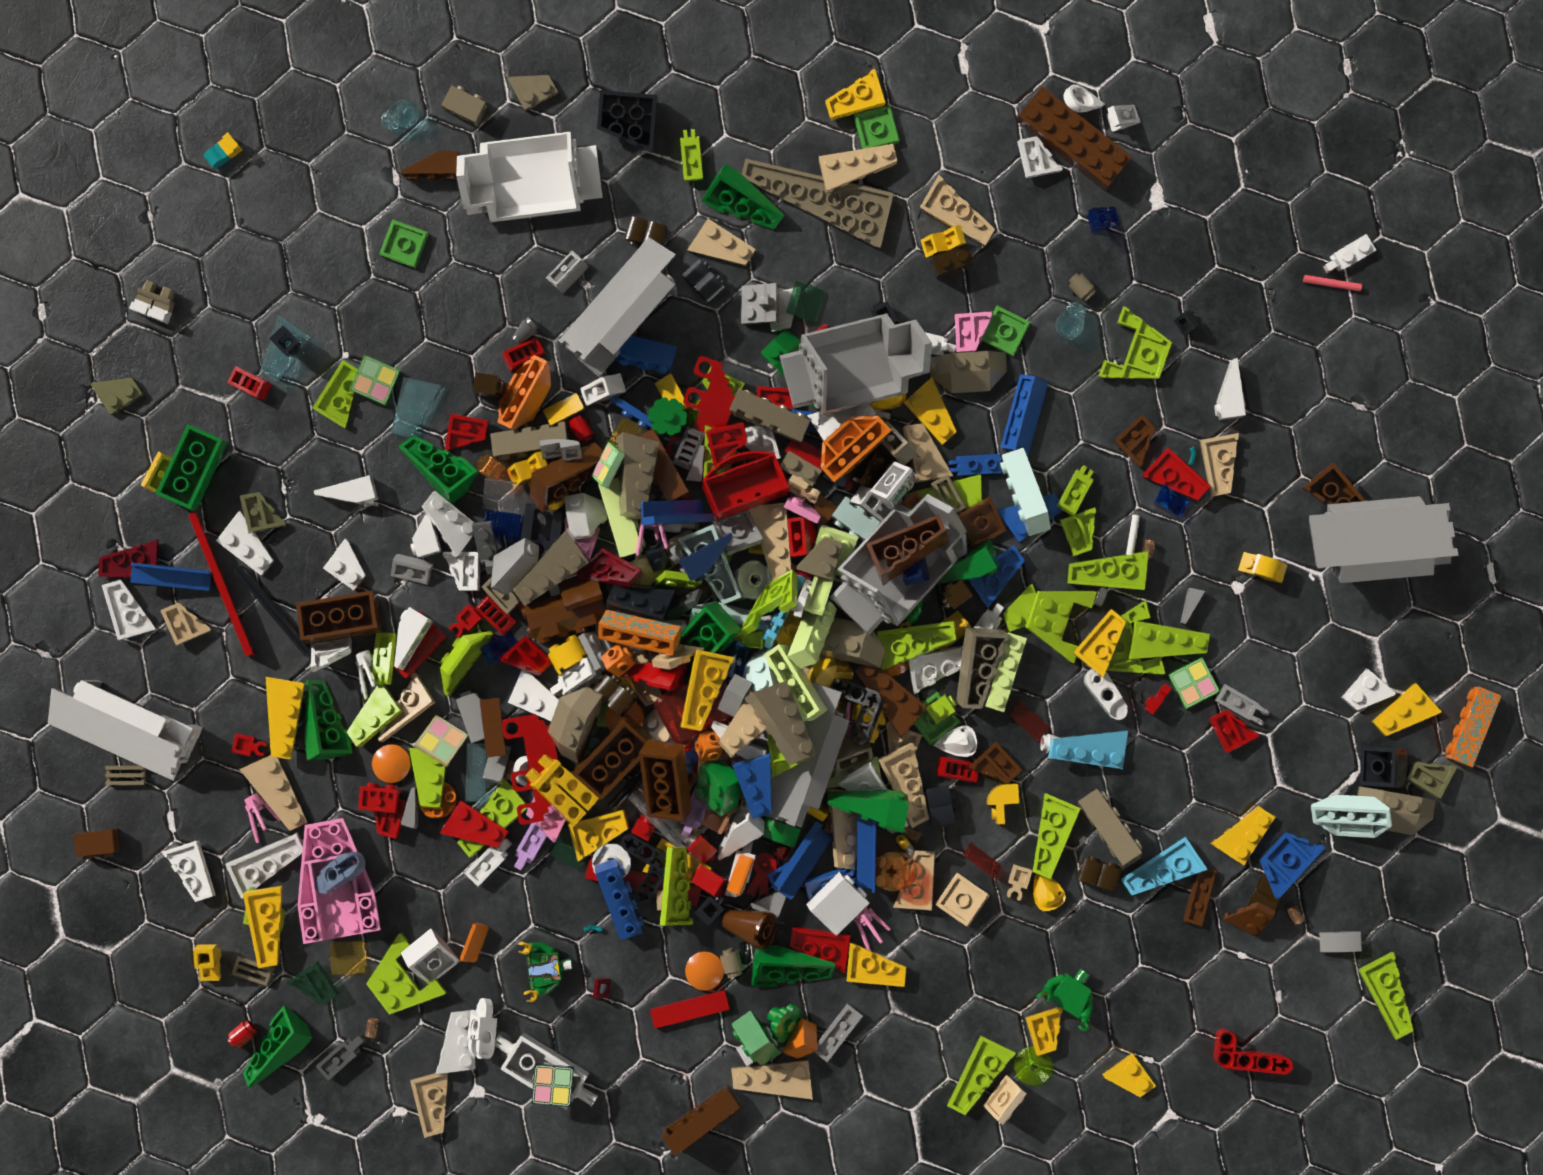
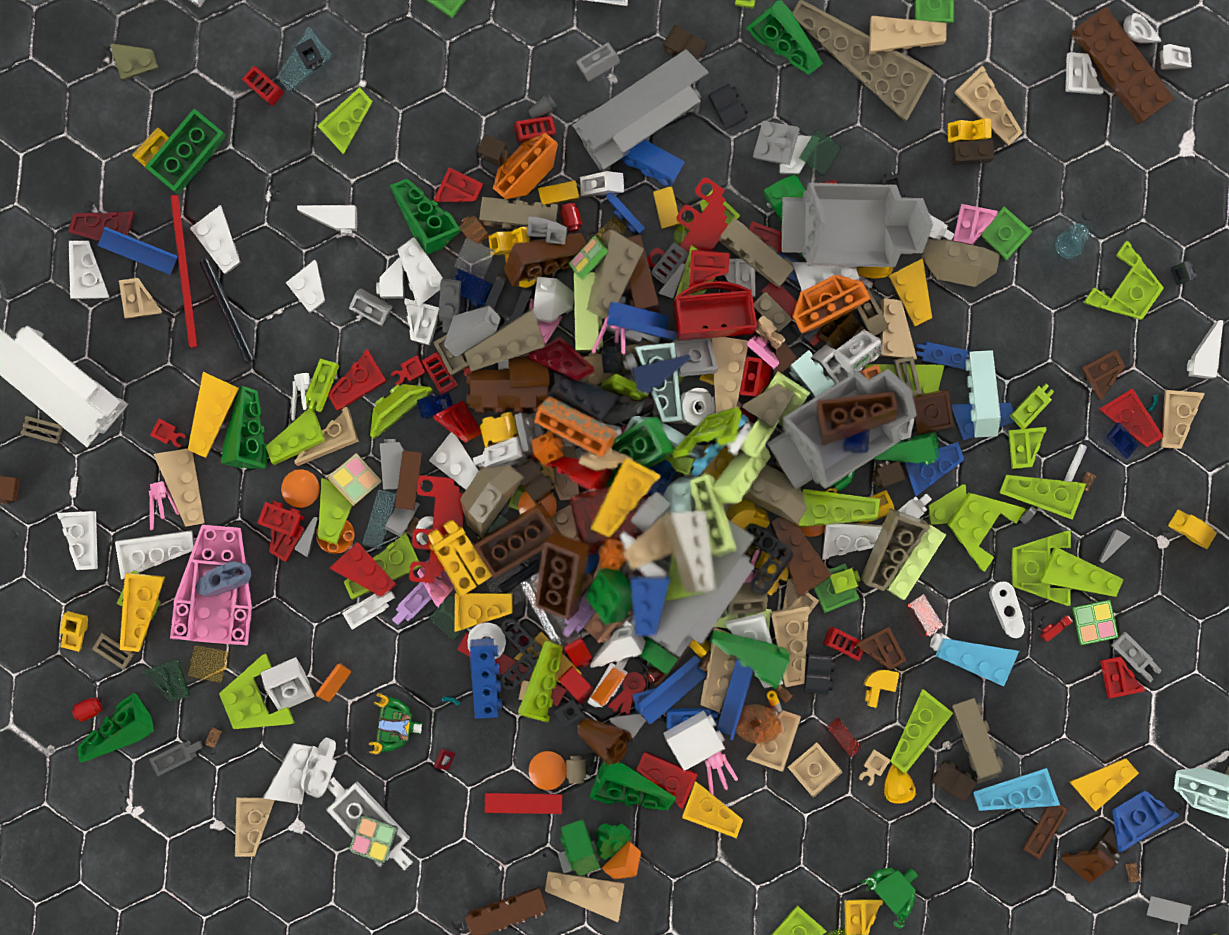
camera: 10 degrees right, 0 degrees up
(259, 514) = (238, 213): olive wing -> none
(329, 652) = (270, 363): white wing -> none
(338, 617) = (288, 334): reddish brown brick -> none
(374, 380) = (384, 115): tile -> none
(410, 634) = (354, 367): white slope -> none
(412, 404) = (414, 149): clear light blue wing -> none
(643, 828) = (527, 616): red brick -> none
(667, 416) = (657, 227): green plant -> none
(721, 244) = (754, 75): tan wing -> none
(837, 1032) = (660, 864): light grey plate -> none
(958, 742) = (852, 617): white piece -> none
(1024, 413) = (1002, 318): blue panel -> none
(1081, 286) = (1091, 210): dark tan brick -> none
(1101, 642) = (1016, 559): yellow wing -> none
(1102, 218) = (1129, 150): clear blue slope -> none

